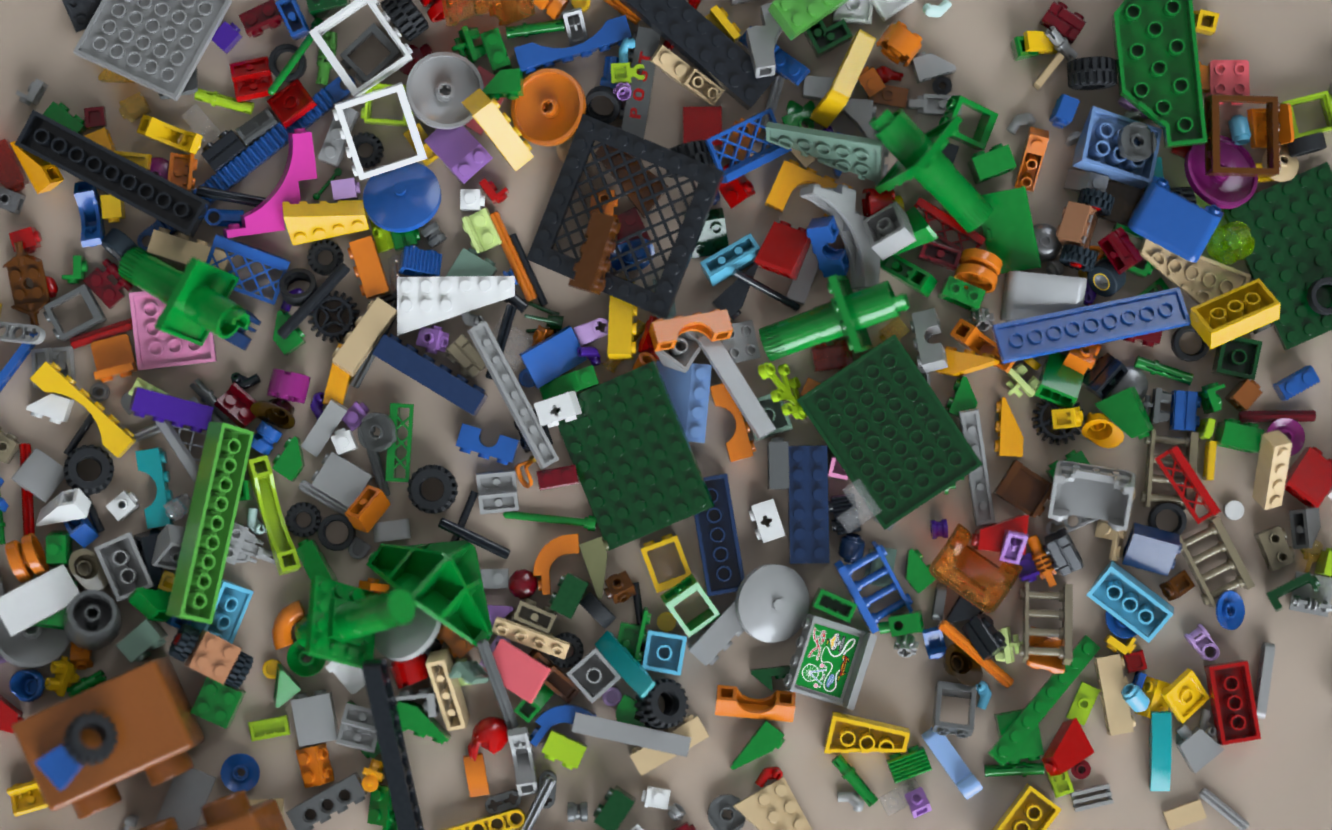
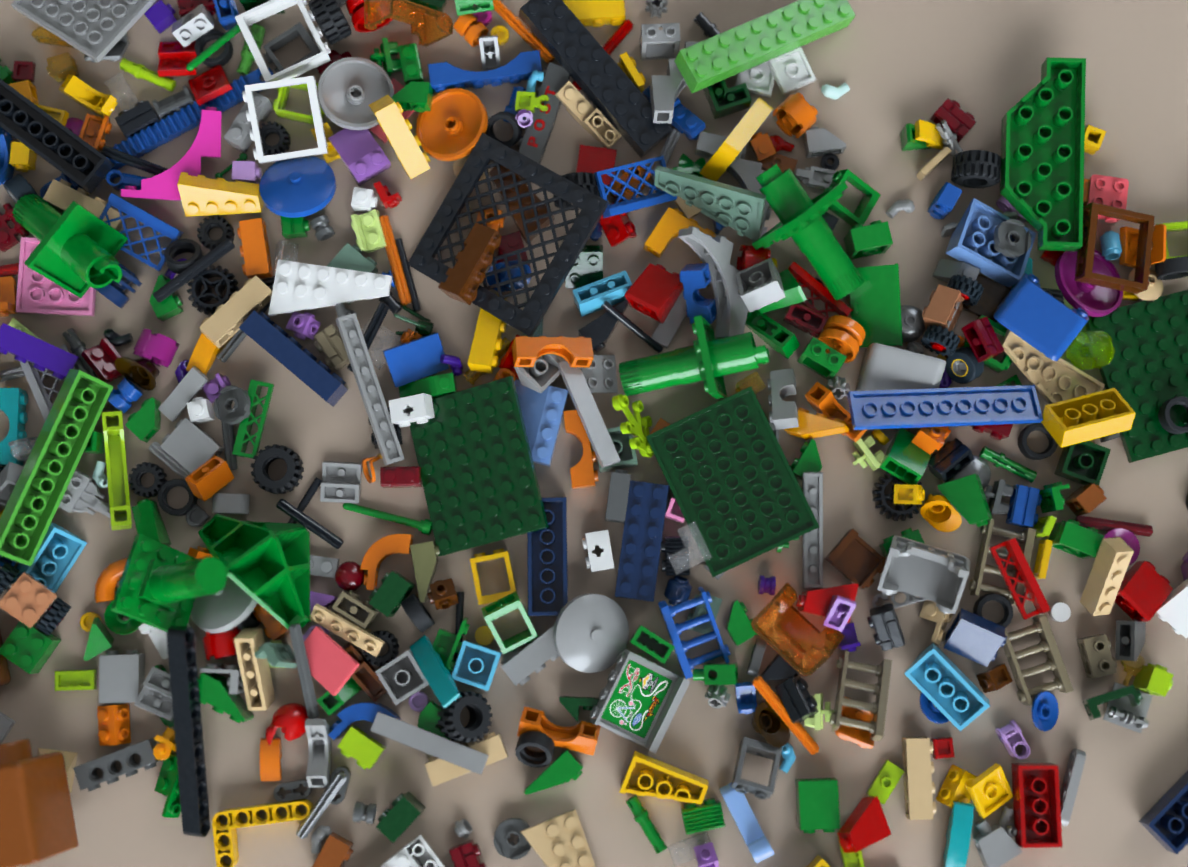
camera: 10 degrees right, 5 degrees down
(230, 775) = (29, 724): blue dish -> none
(263, 43) = (193, 25): none -> light grey brick
(382, 238) = (273, 223): lime plate -> none
(419, 262) = (303, 249): blue brick -> none
(470, 440) = (323, 427): blue arch -> none
(525, 379) = (386, 379): blue tile -> none
(534, 28) = (451, 52): green pin -> none
(589, 331) = (455, 341): lavender piece -> none
(656, 797) = (445, 810): white bracket -> none
(734, 714) = (538, 740): none -> black tyre
(768, 774) = (561, 803): red arm -> none
(831, 357) = (685, 401): clear red brick -> none
(853, 798) = (642, 843): light grey arm -> none
(1009, 434) = (849, 506): light orange slope -> none
(1014, 769) = (813, 839): green pin -> none
(1032, 158) = (907, 241): orange slope -> none
(1042, 561) = (864, 633): orange hinge -> none
(1042, 702) = (845, 776): green plate -> none
(1074, 770) = (881, 849): dark red plate -> none
(1115, 645) = (926, 728): yellow bracket -> none
(1135, 697) = (940, 785): medium azure brick -> none
(1139, 679) = (944, 769): blue tile -> none
(1296, 383) = (1137, 496): blue brick -> none

